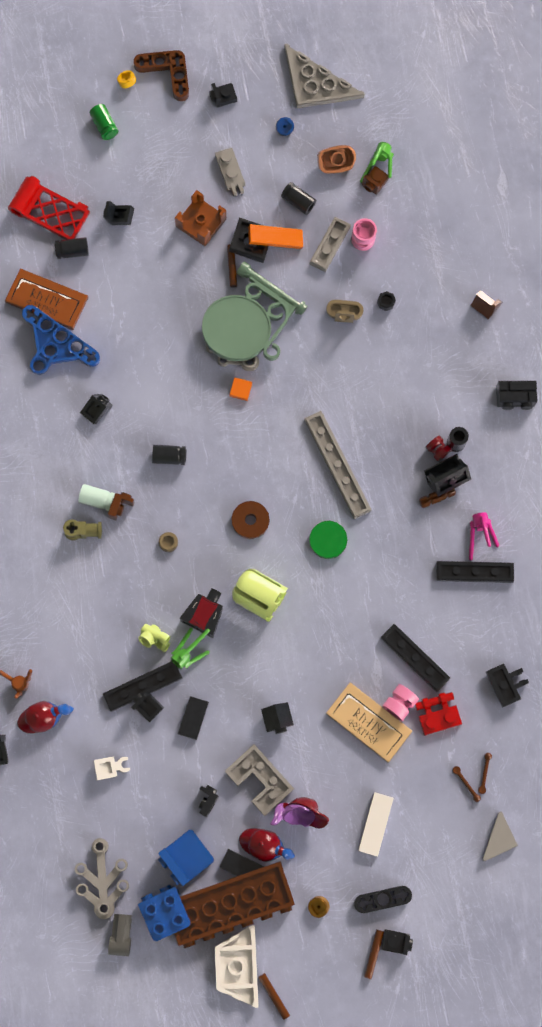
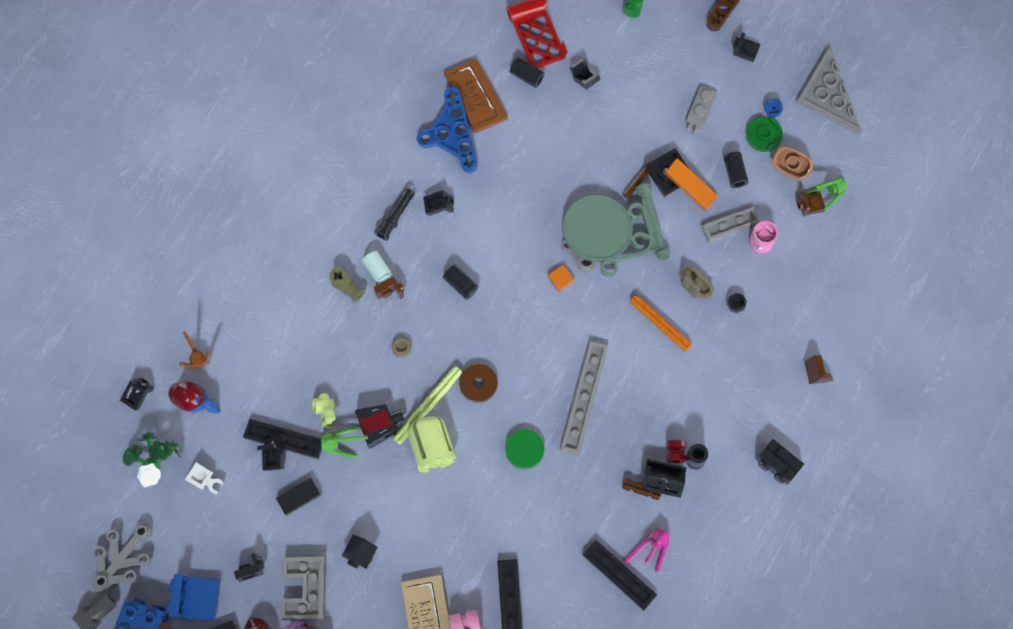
camera: 45 degrees right, 5 degrees down
(62, 774) = (158, 452): none -> clear green plant
(71, 451) = (391, 220): none -> black pin
(200, 219) = (644, 127): dark orange panel -> none
(227, 557) = (428, 403): none -> yellowish green axle
(294, 153) = (764, 134): none -> green tile
(345, 362) = (661, 323): none -> orange axle

